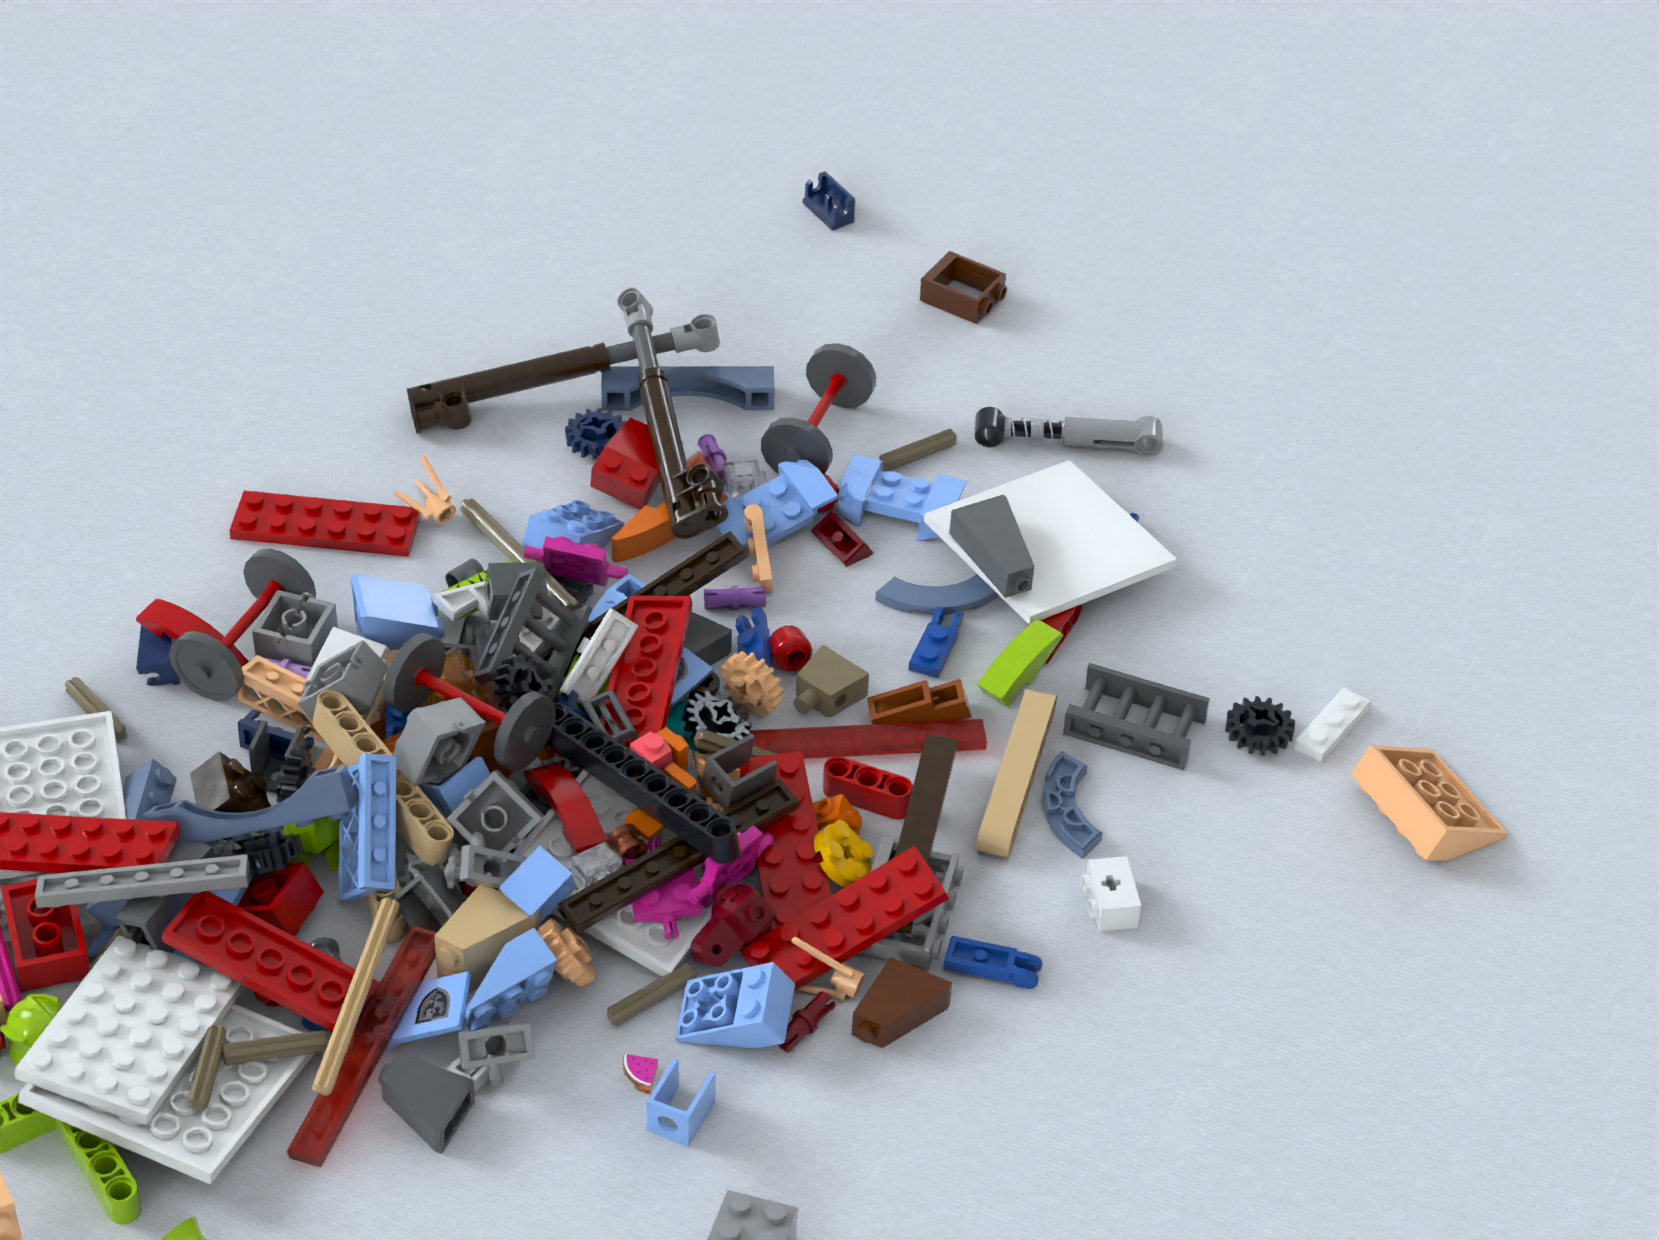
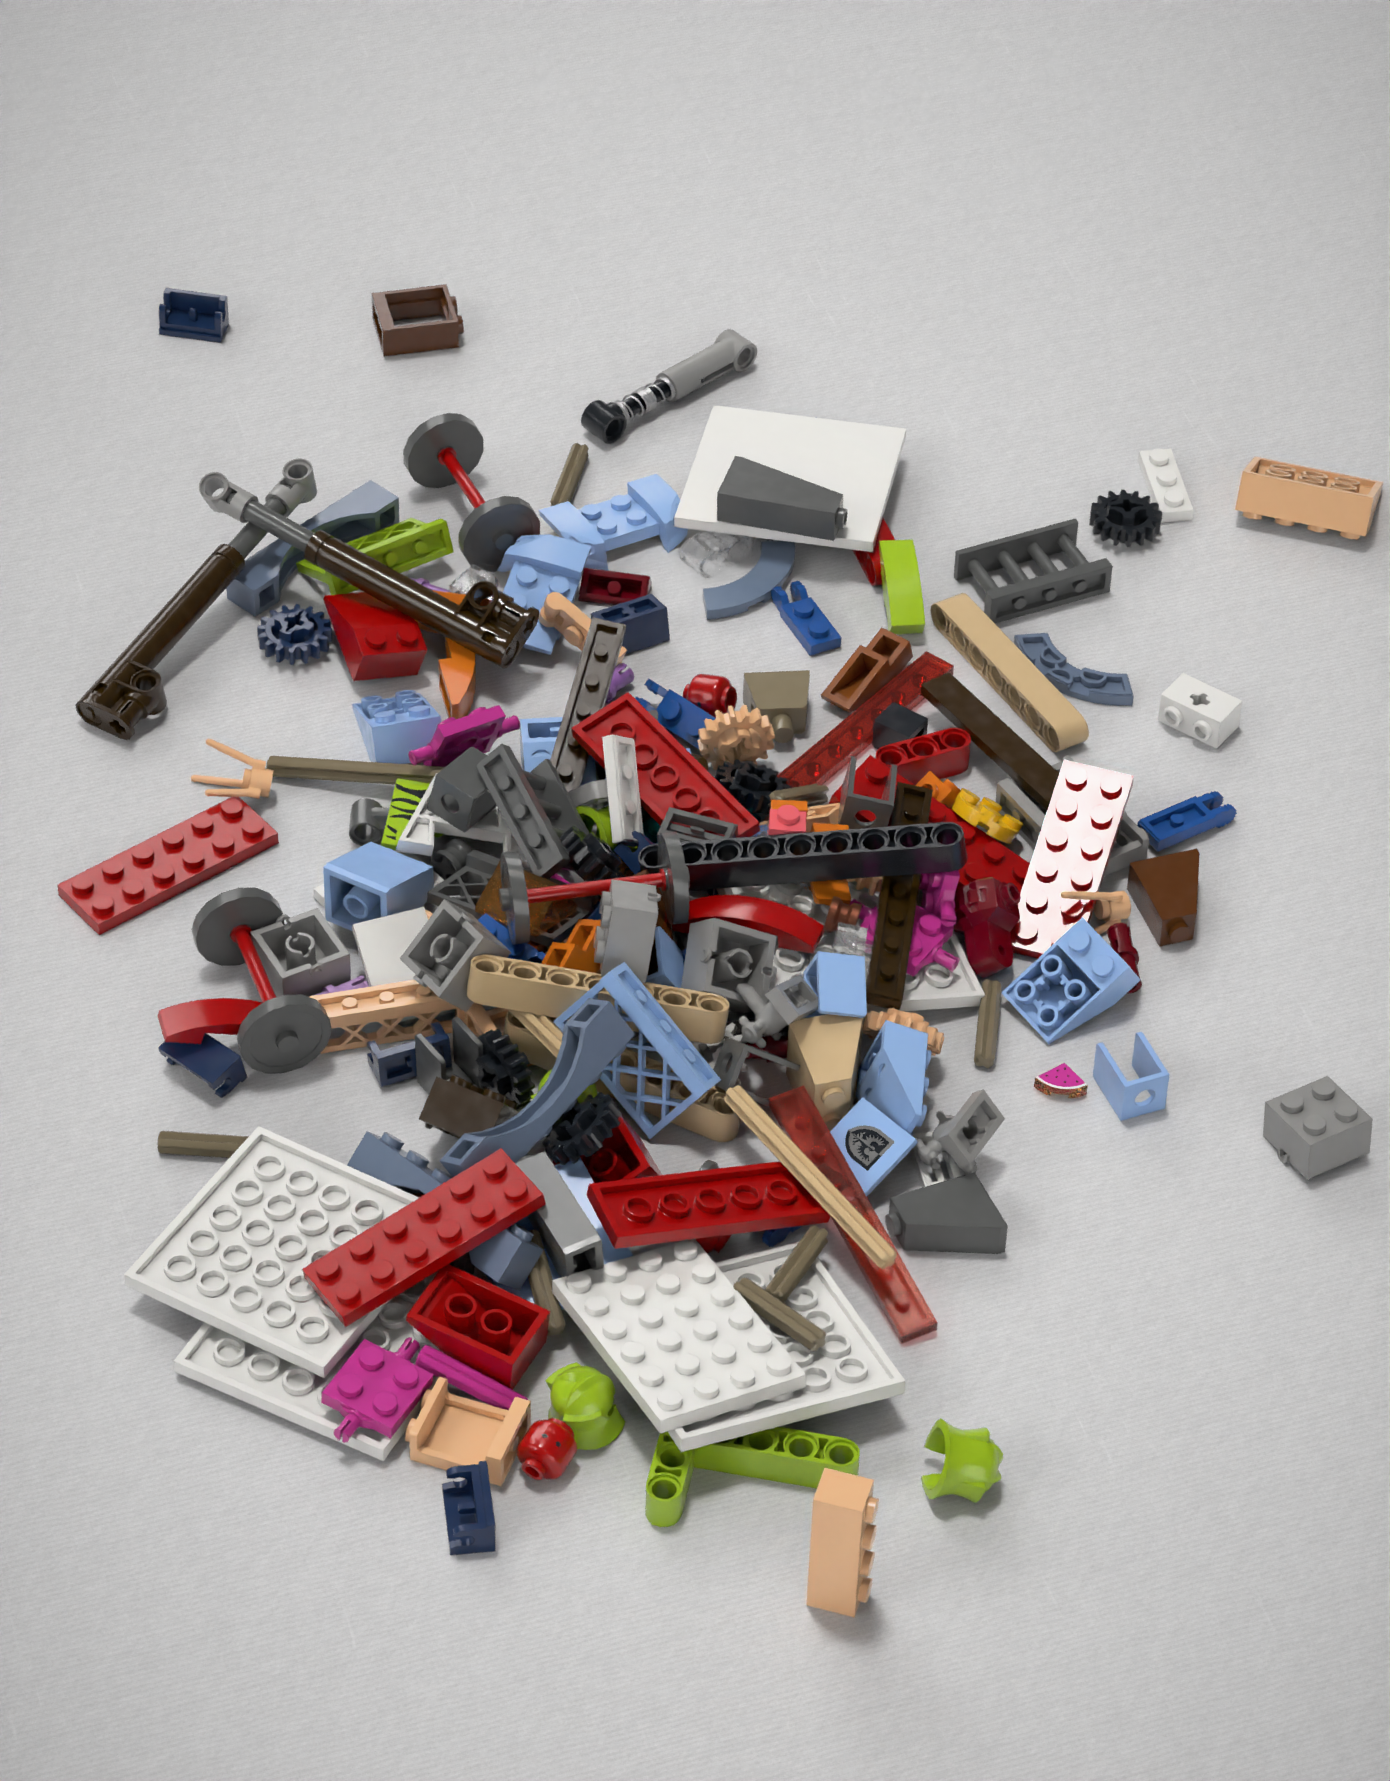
camera: 45 degrees left, 0 degrees up
(142, 881) = (550, 1209): light grey plate -> none
(722, 418) = (396, 546): none -> lime fence
(808, 568) = (644, 620): none -> dark blue hinge
(880, 752) = (896, 725): none -> black panel
(935, 558) = (715, 552): none -> clear beam

